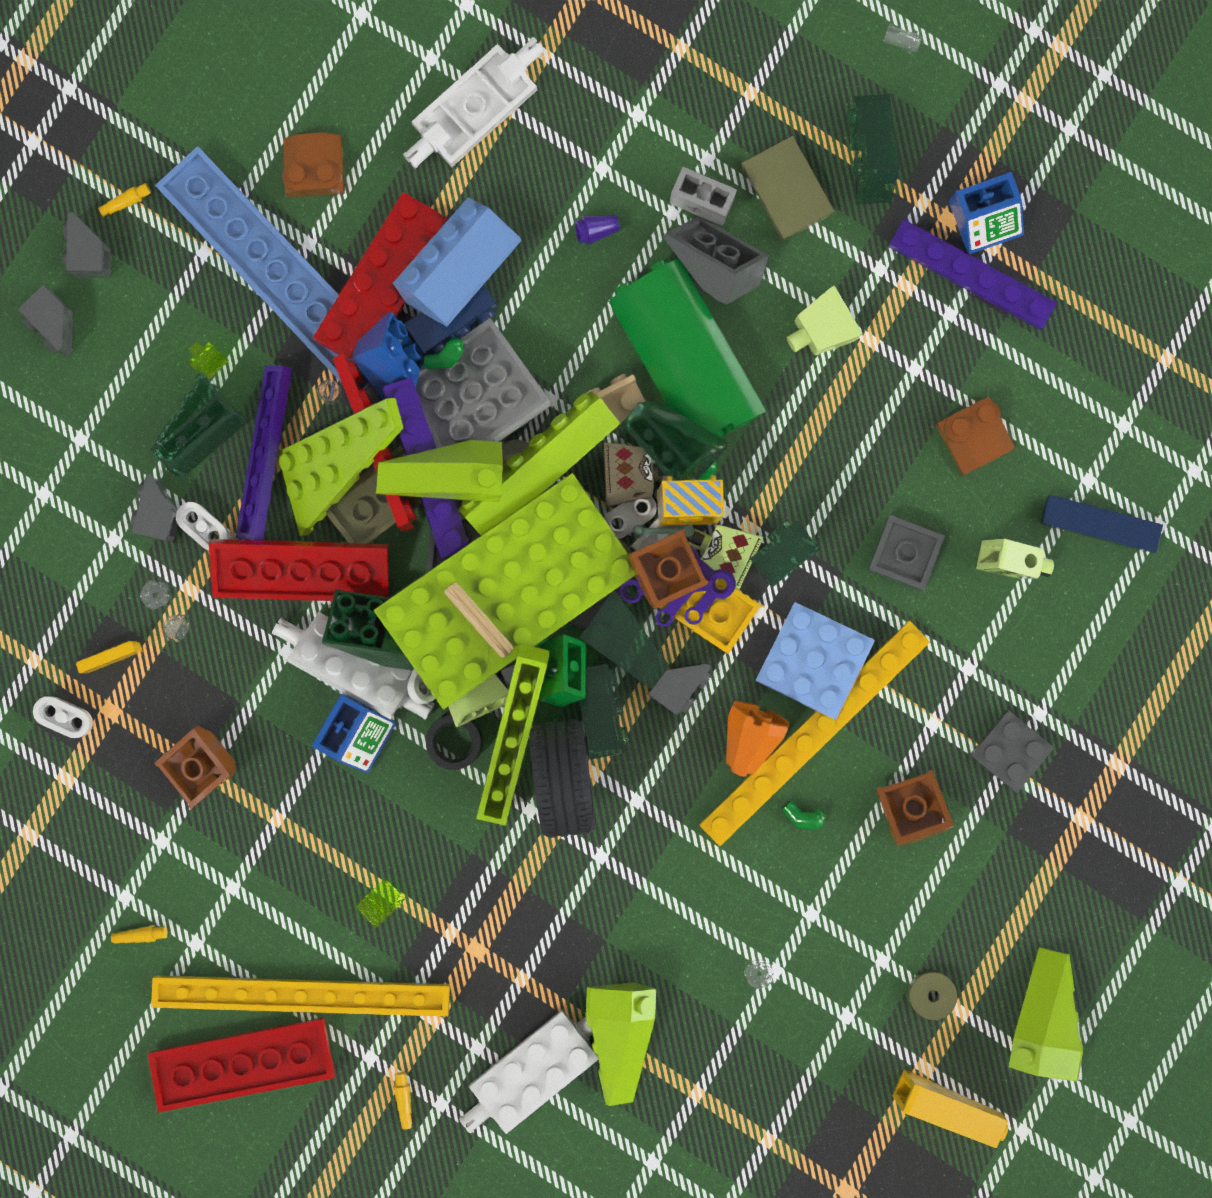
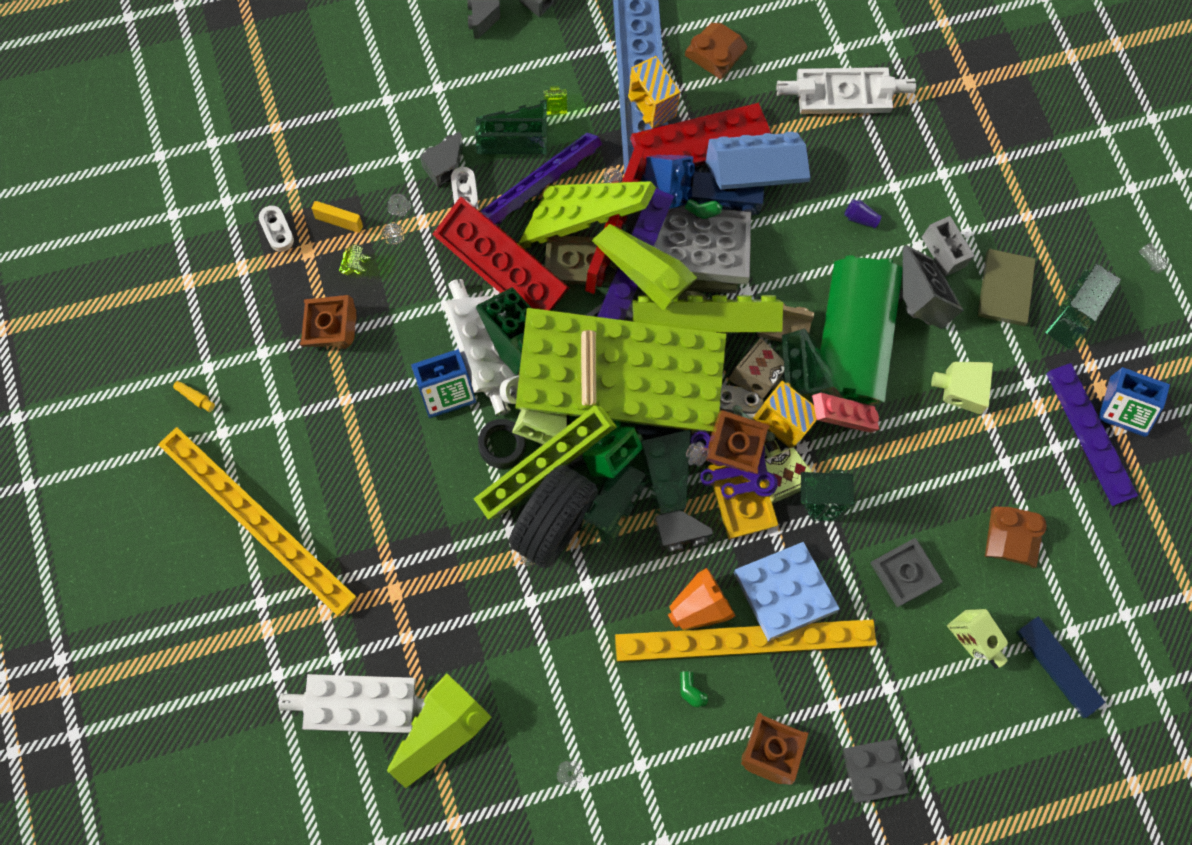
camera: 35 degrees right, 15 degrees down
(161, 687) = (351, 260): none -> clear neon green tile
(241, 1064) = (177, 532): red plate -> none
(297, 277) = (653, 92): none -> yellow container
(380, 903) = (361, 505): clear neon green panel -> none
(403, 1099) = (257, 647): yellow animal -> none
(639, 609) = (697, 454): none -> clear plate
(740, 455) = (845, 412): none -> coral plate

